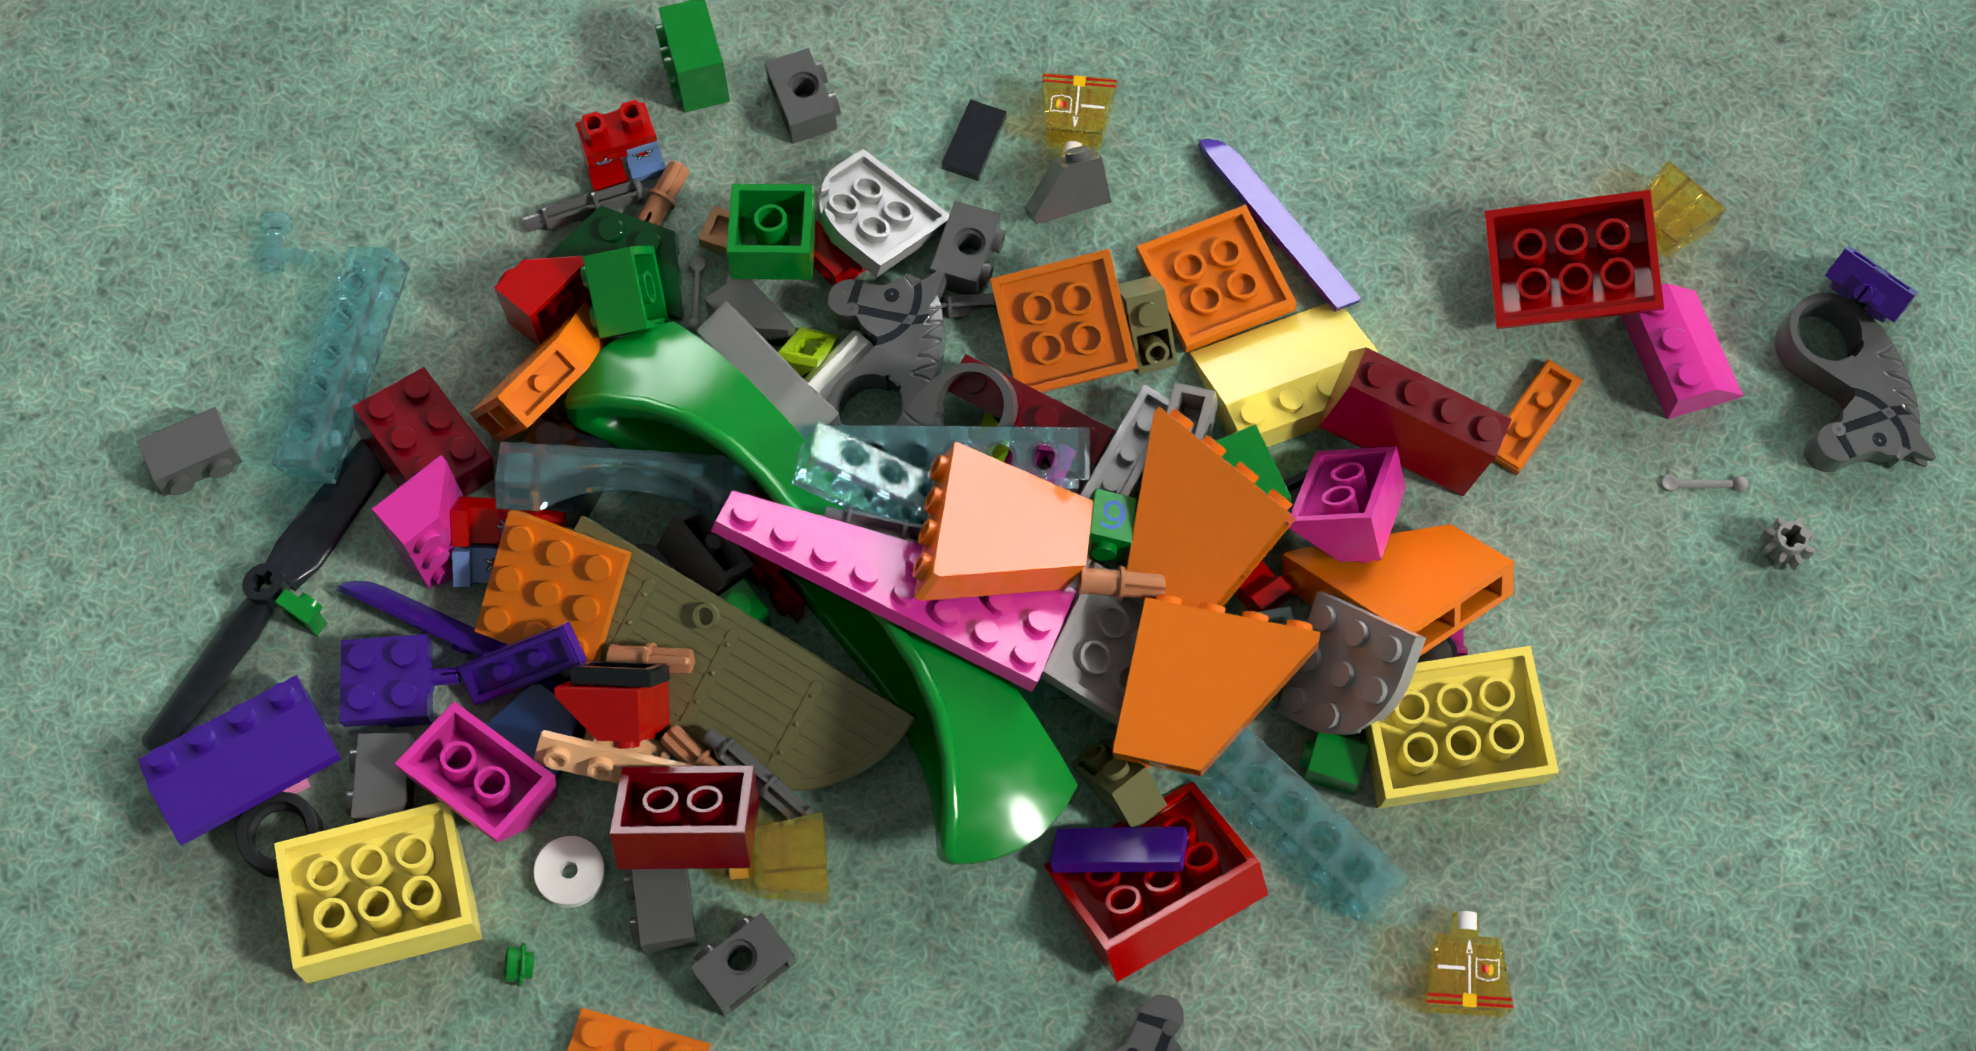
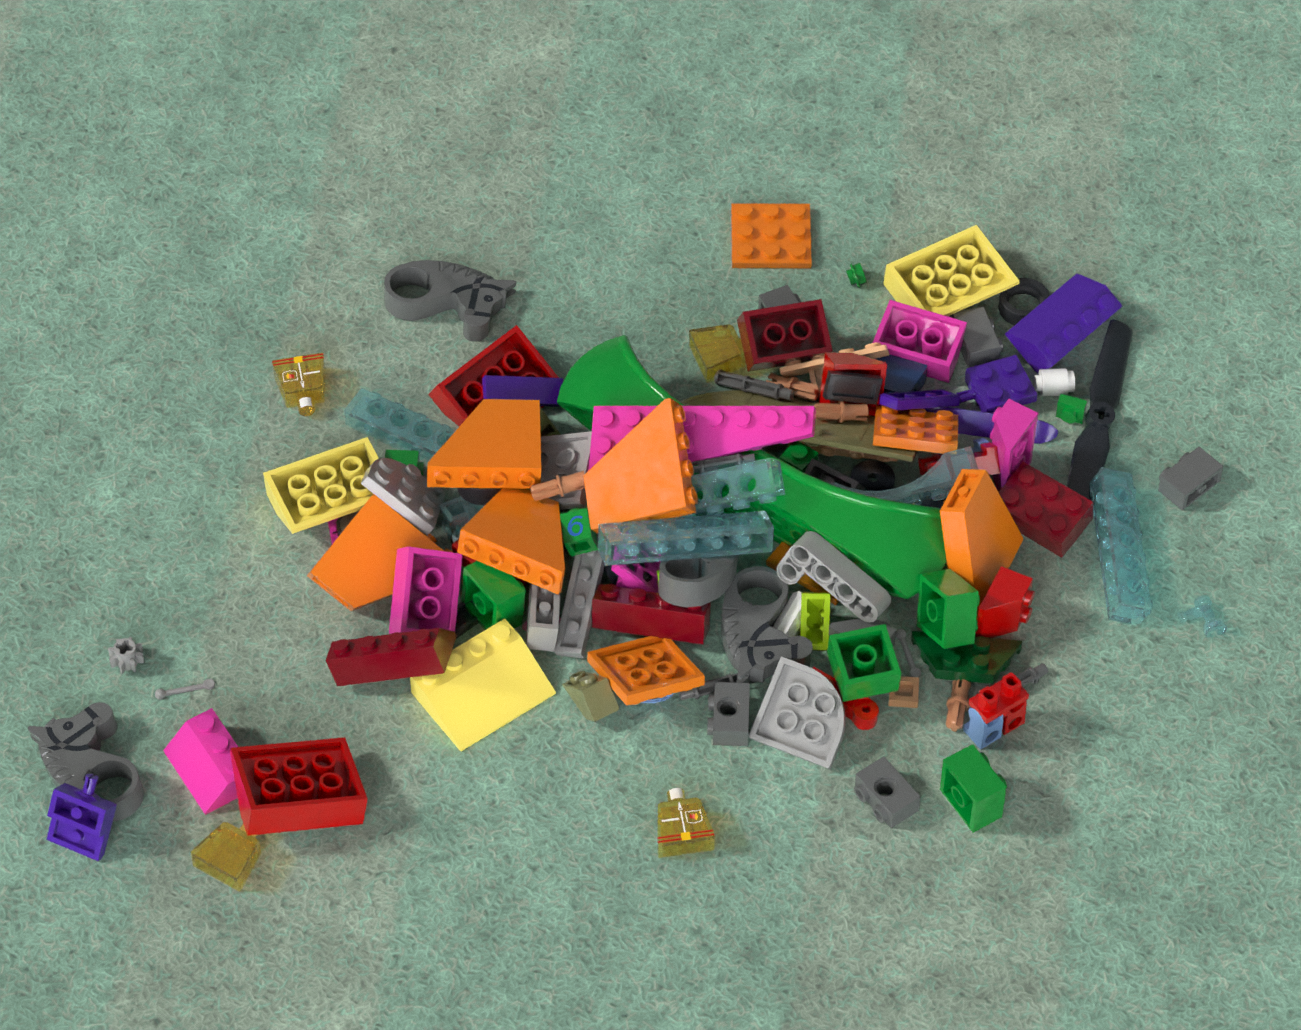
camera: 165 degrees right, 15 degrees down
(312, 666) = (1054, 382): none -> white brick
(565, 852) = (847, 315): white piece -> none
(731, 987) = (727, 297): dark grey brick -> none
(974, 140) = (751, 798): black tile -> none
(1070, 186) = (670, 767): dark grey slope -> none
(1217, 278) = (550, 739): orange plate -> none
(1279, 224) = (516, 788): piece -> none
(1536, 414) = (308, 704): orange tile -> none

